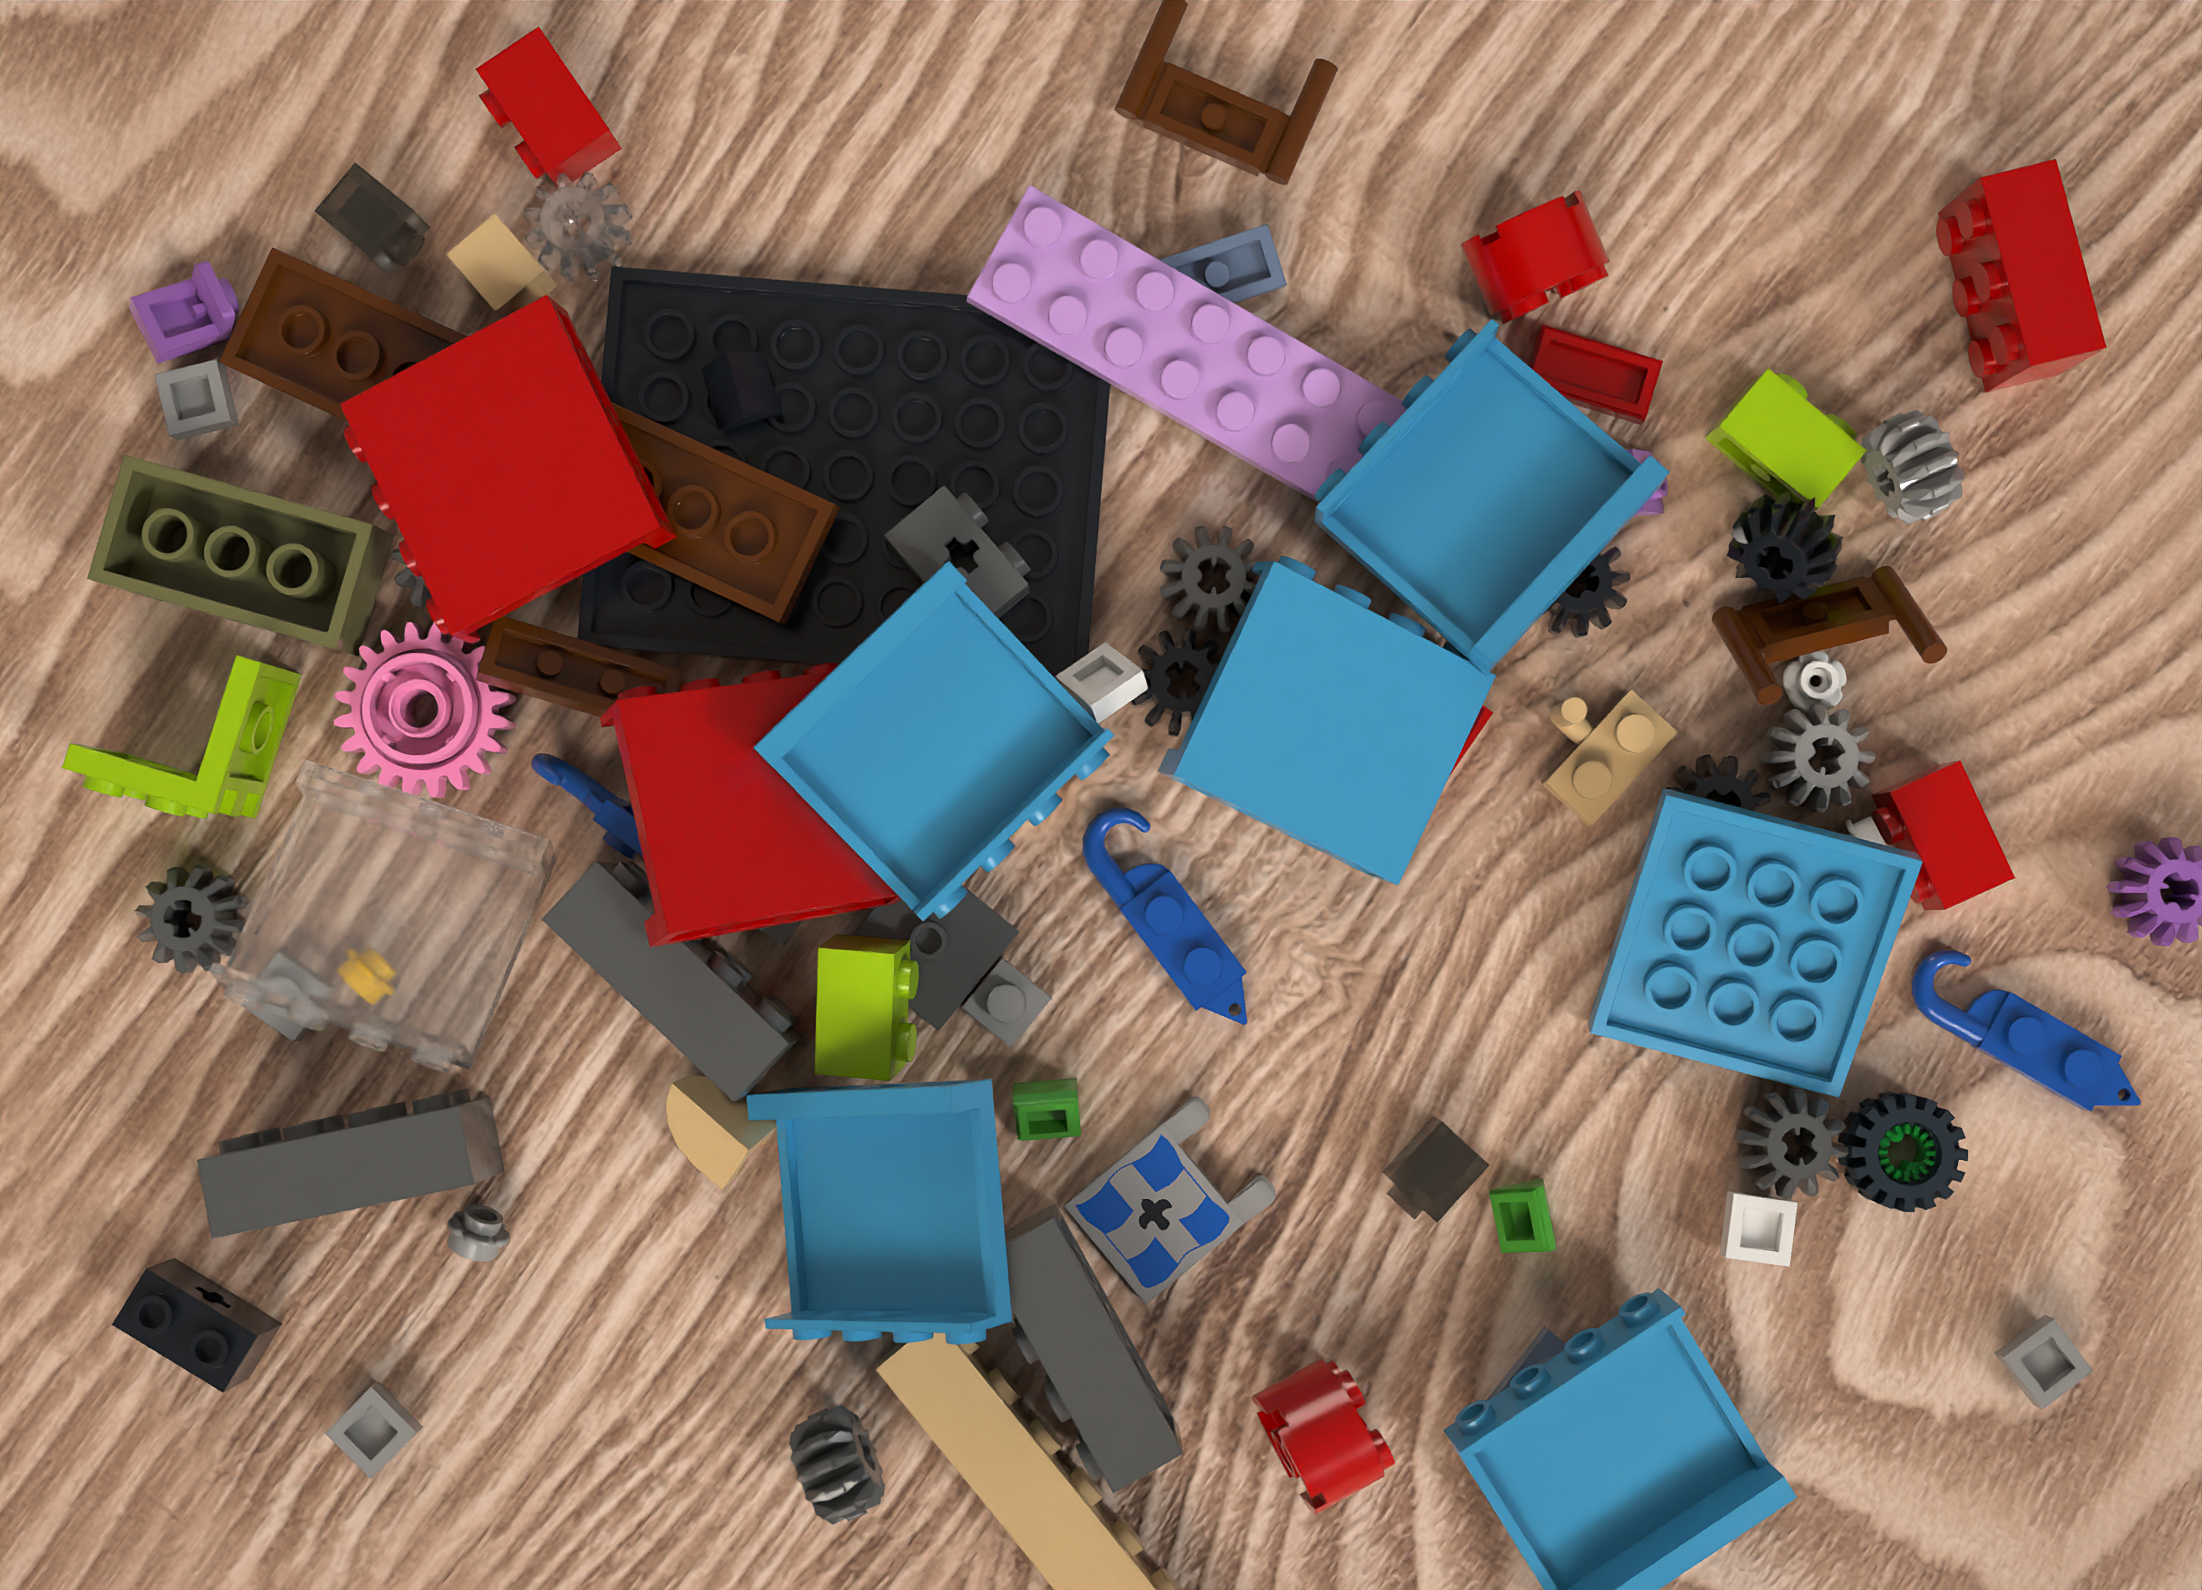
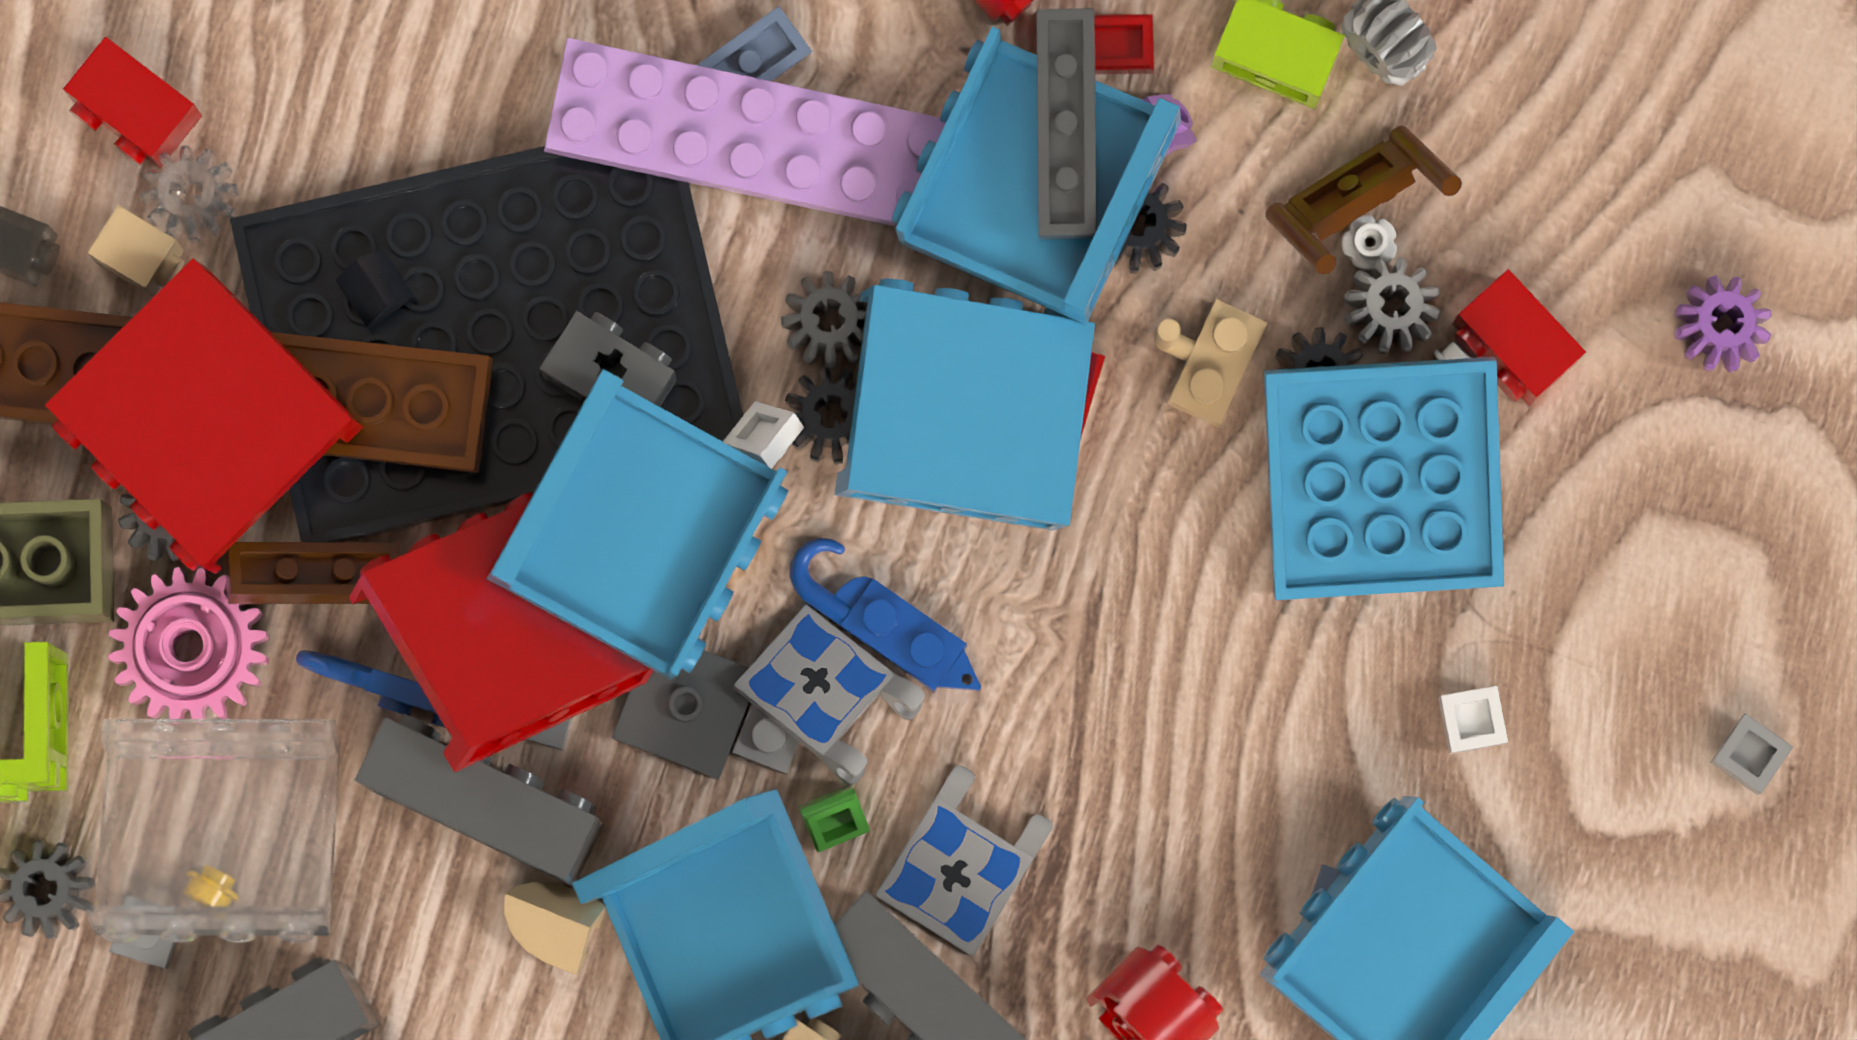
camera: 20 degrees left, 5 degrees down
(864, 1007) = (649, 775): lime brick -> none
(1074, 967) = (819, 685): none -> light grey flag
(1433, 1171) = (1180, 760): clear smoke brick -> none
(1523, 1217) = (1271, 776): bright green slope -> none
(1538, 450) = (1066, 123): none -> dark grey plate
(1785, 546) = (1303, 137): black gear -> none
(1811, 1134) = (1493, 631): dark grey gear -> none
(1915, 1181) = (1552, 594): black bush -> none
(2026, 1040) = (1649, 488): blue plate -> none

